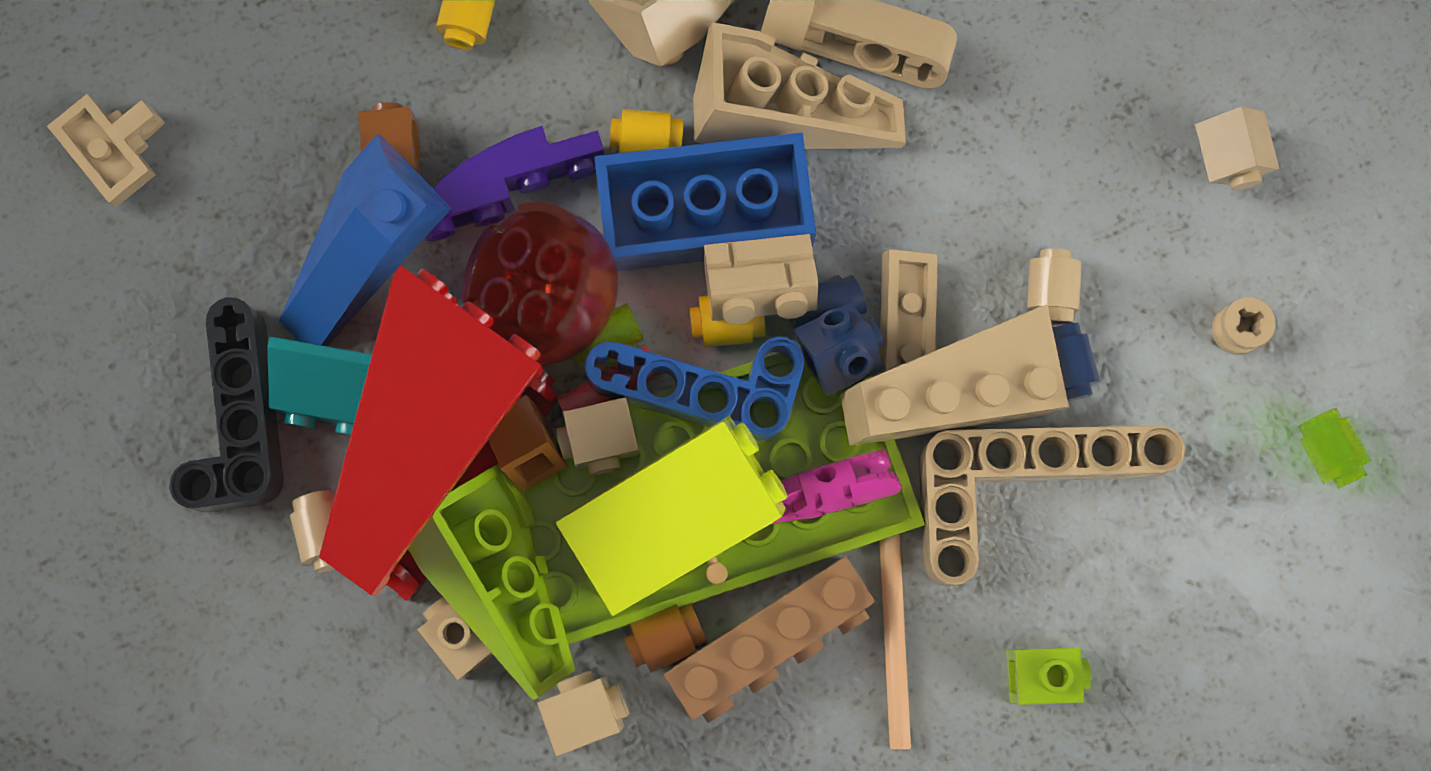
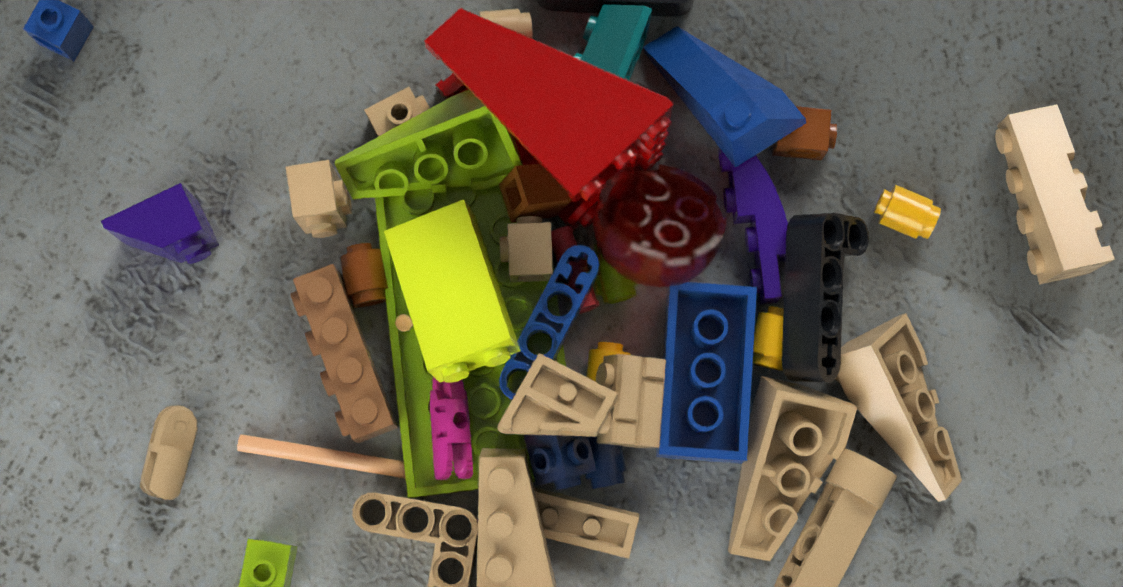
camera: 105 degrees right, 0 degrees up
(586, 90) = (815, 292): none -> black beam
(786, 354) = (557, 403): none -> tan wing

